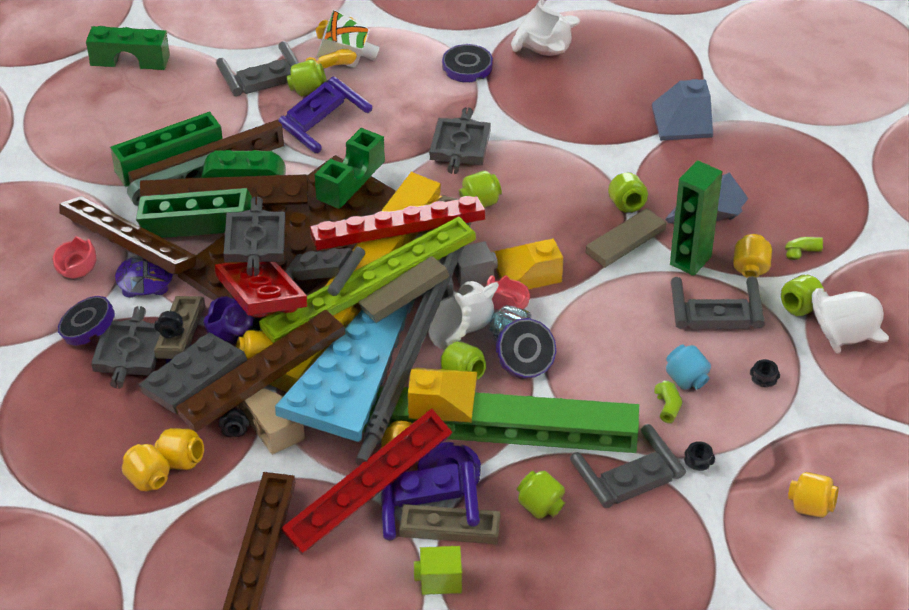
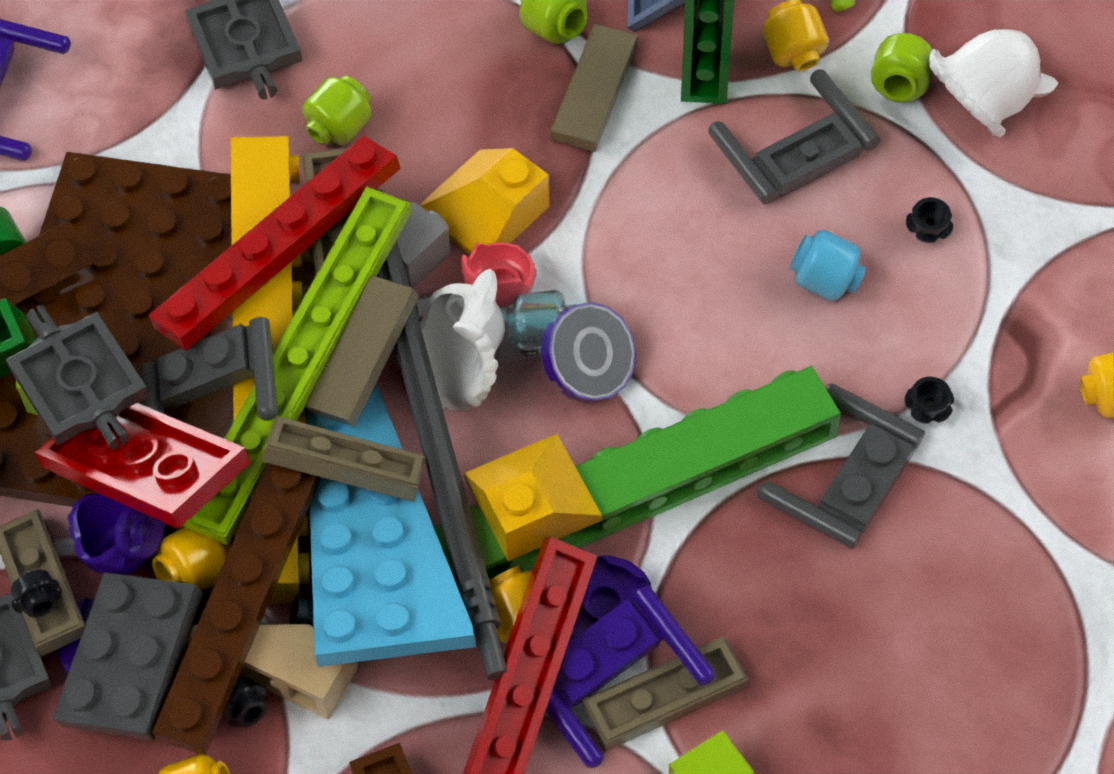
camera: 30 degrees left, 15 degrees up
(339, 181) = (127, 191): green arch -> none
(356, 328) = (344, 458): none -> dark tan tile
(463, 357) = (510, 420): lime head -> none
(541, 494) = (765, 579): lime head -> none
(673, 400) = (835, 326): lime arm -> none

